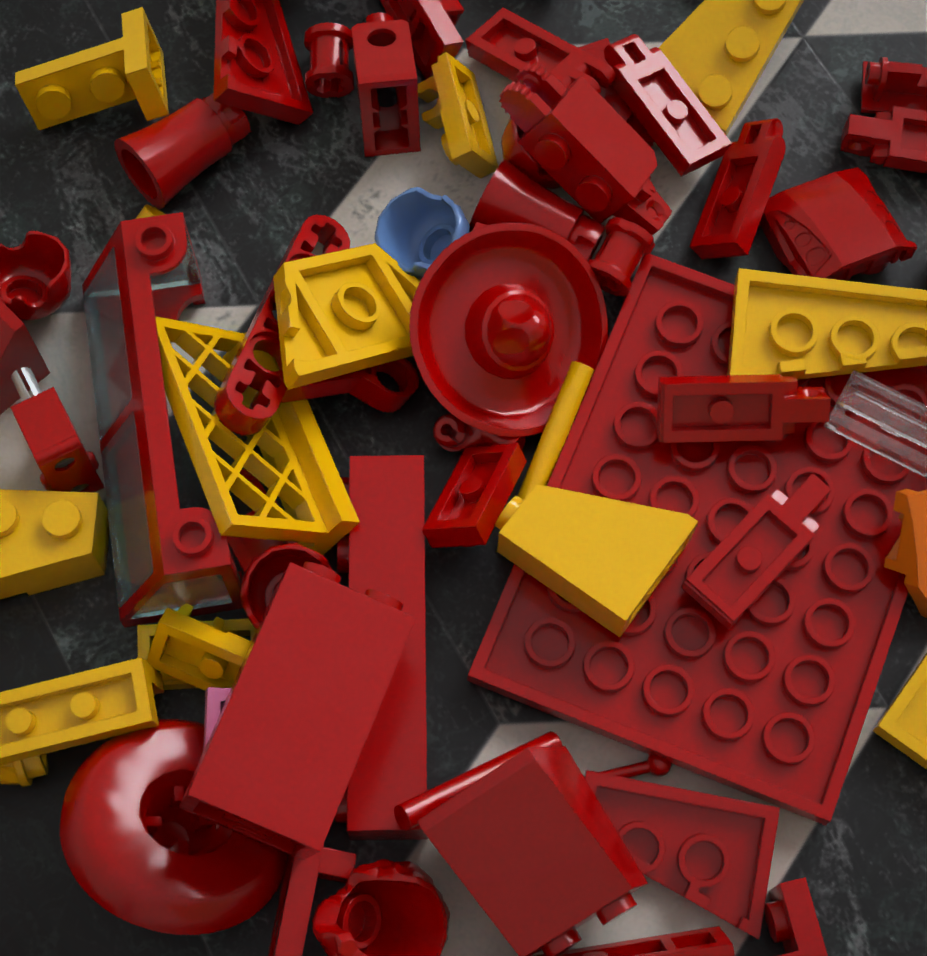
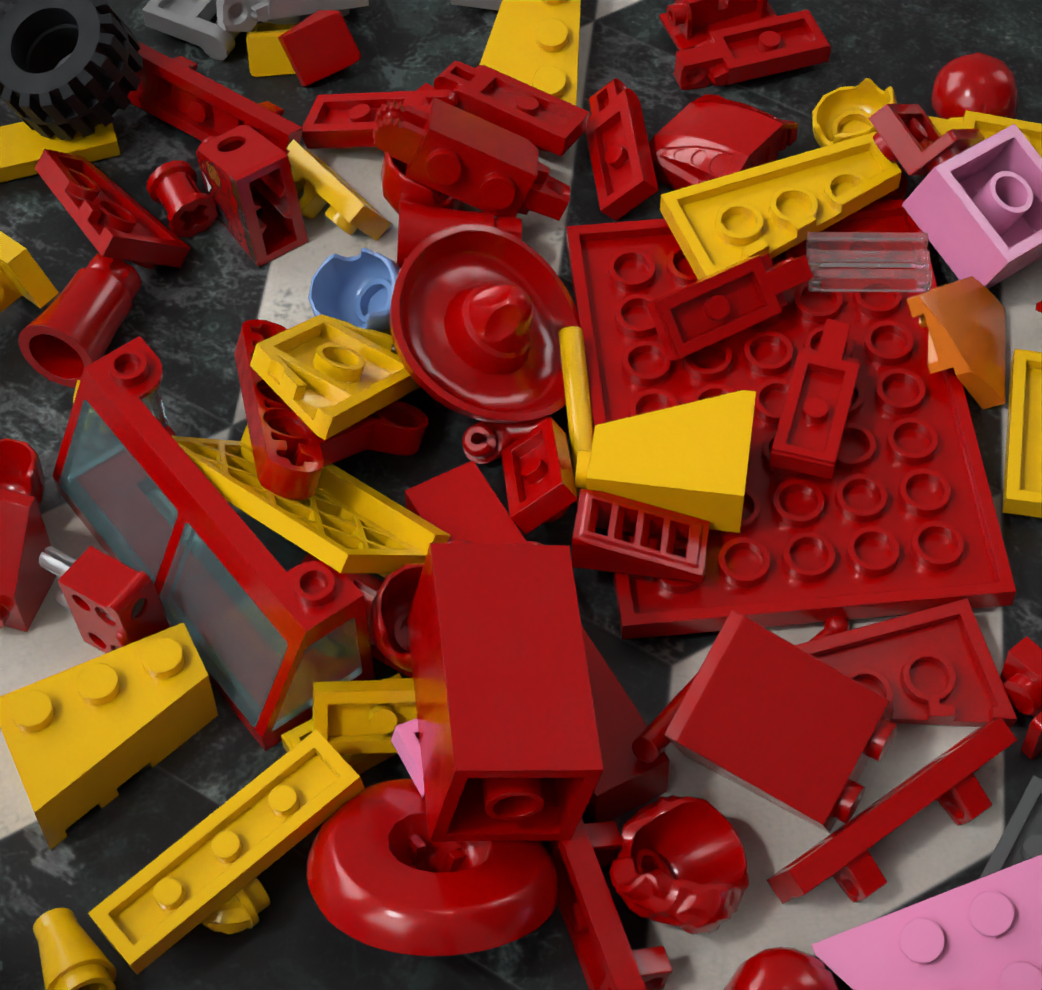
camera: 25 degrees left, 15 degrees down
(518, 570) = (622, 514): none -> red slope
(620, 255) = (548, 230): red bush -> none

